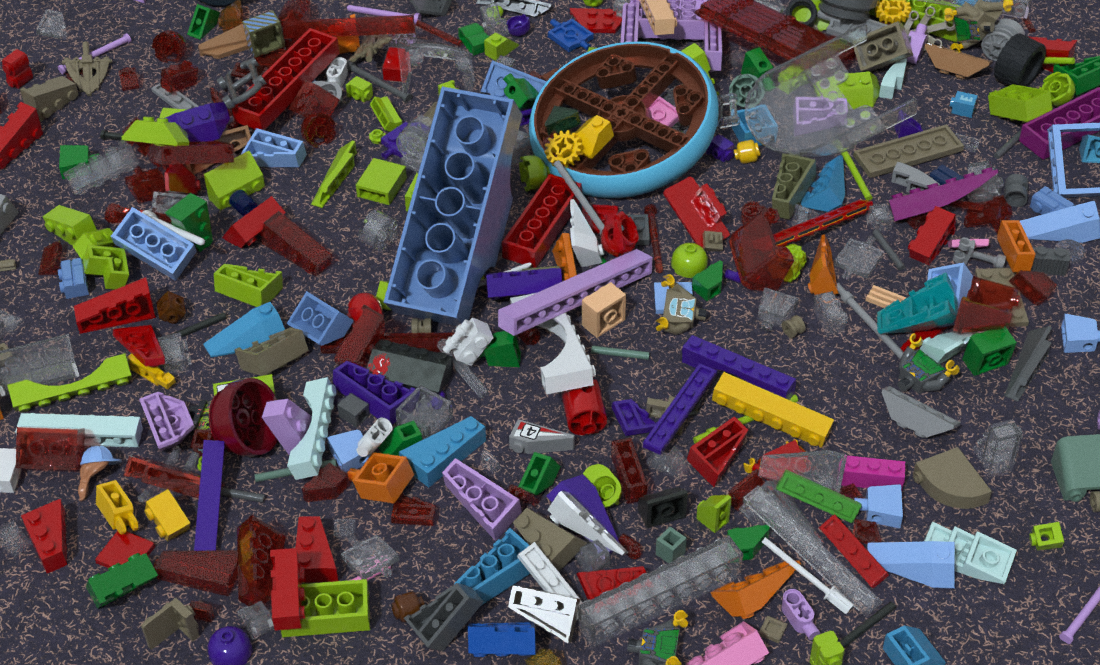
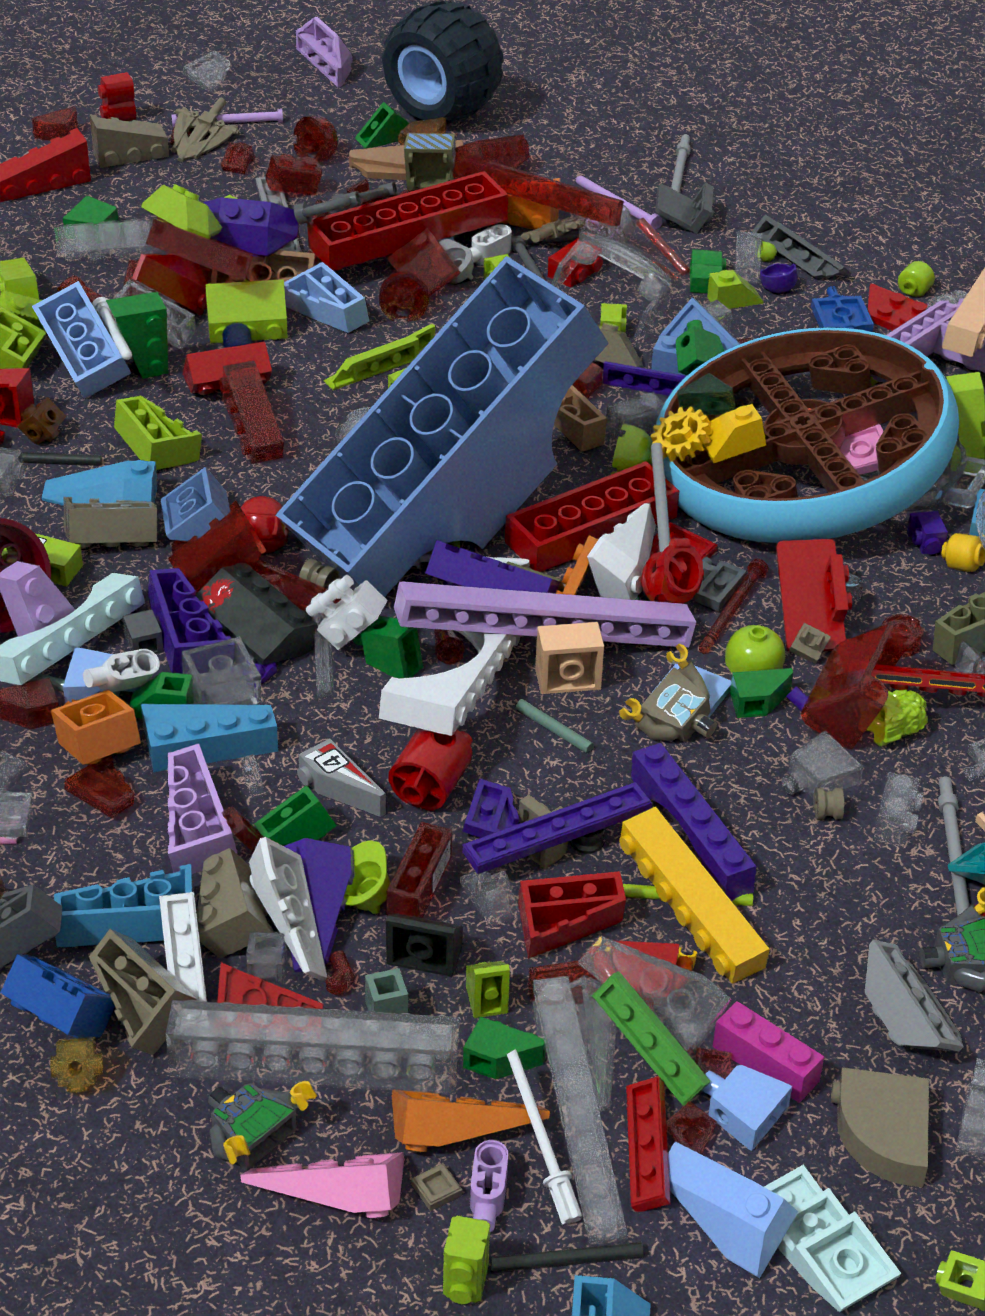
camera: 30 degrees right, 5 degrees down
(822, 271) = (941, 745): orange wedge -> none

